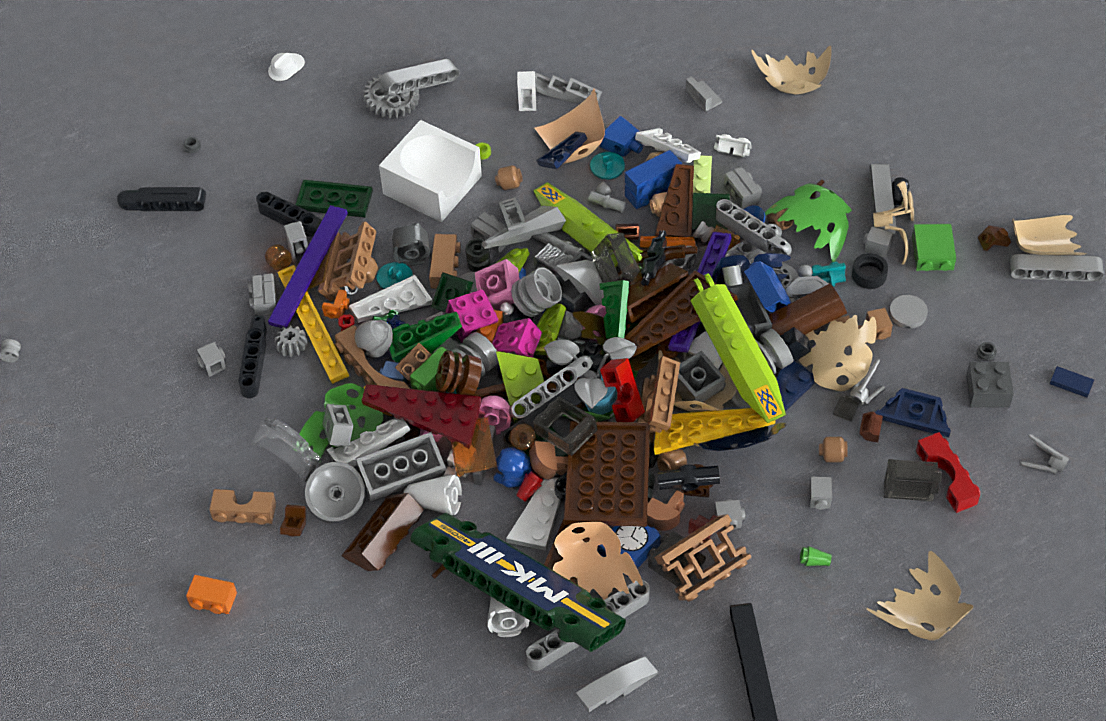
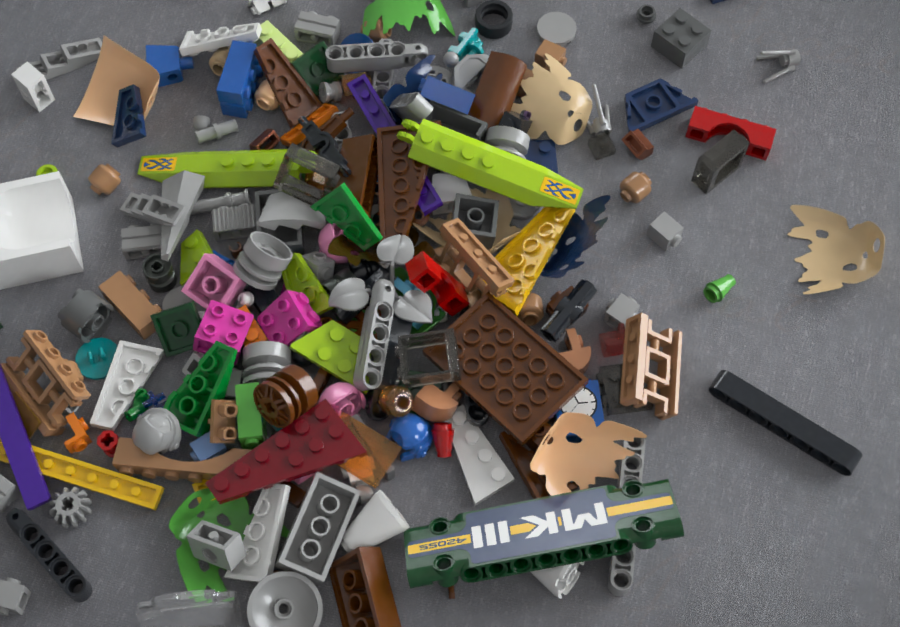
camera: 50 degrees left, 10 degrees up
(607, 165) = (177, 99): teal piece -> none
(616, 683) = (706, 540): light grey slope -> none

